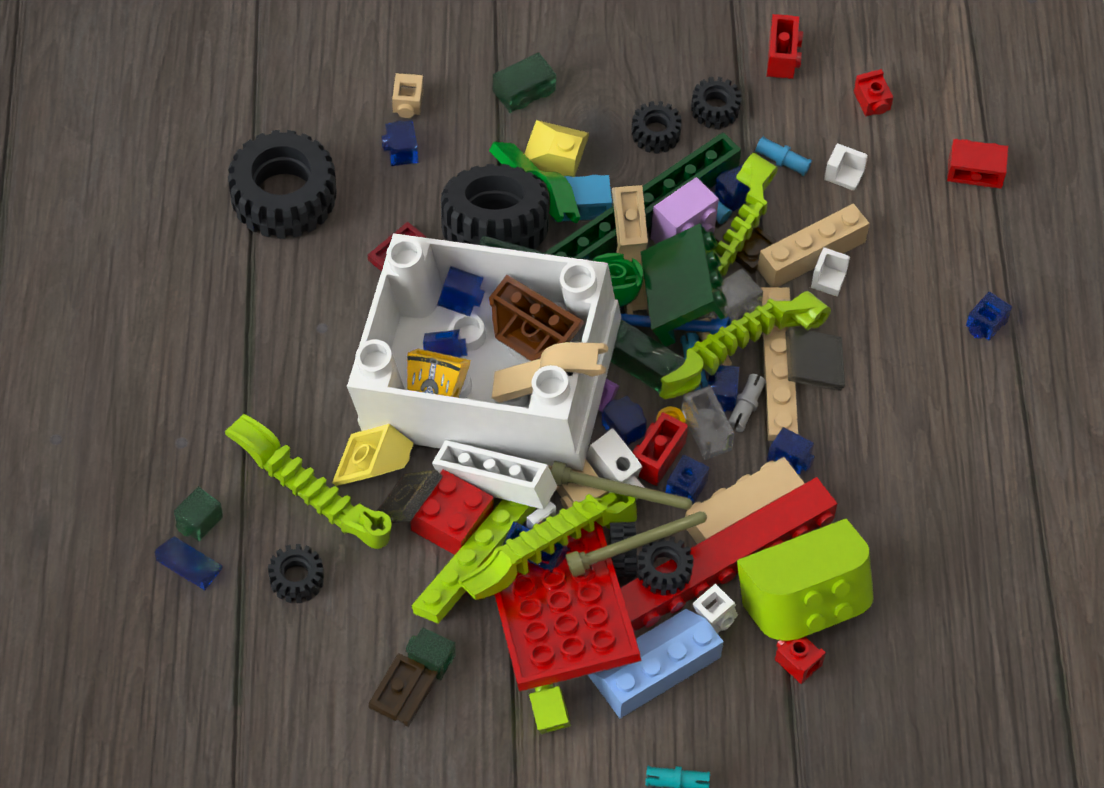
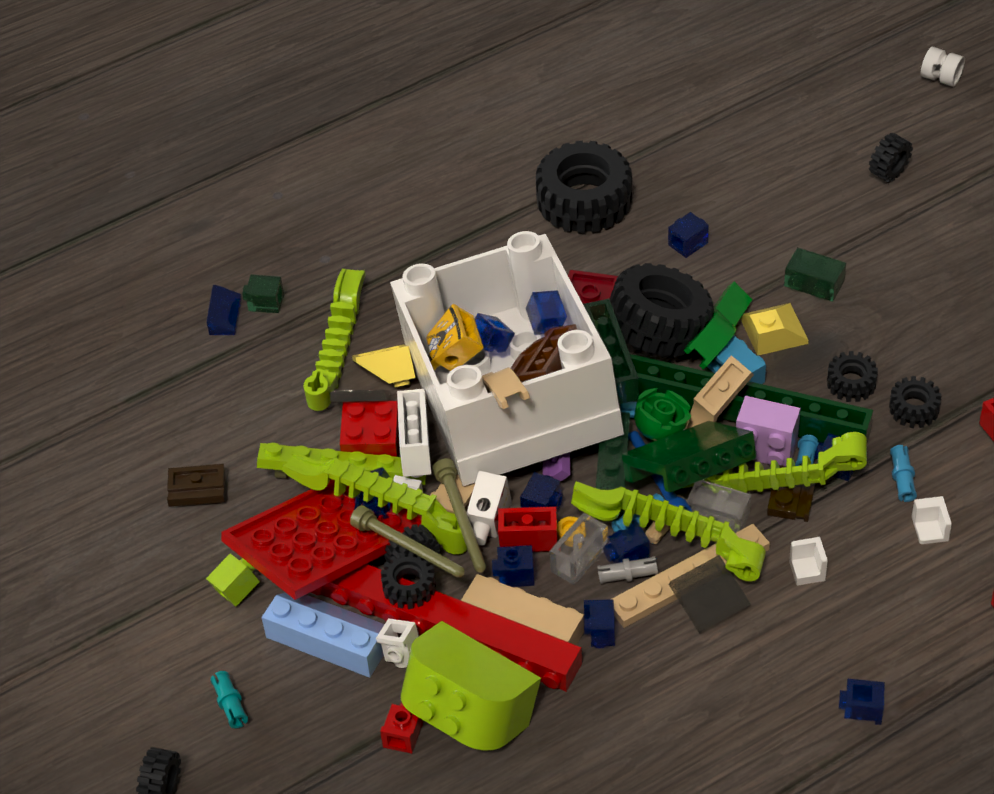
camera: 65 degrees right, 10 degrees down
(291, 558) = (250, 362): black tyre -> none
(407, 100) = (736, 214): tan brick -> none
(431, 651) = (237, 484): clear green brick -> none
(801, 250) = (842, 541): tan brick -> none

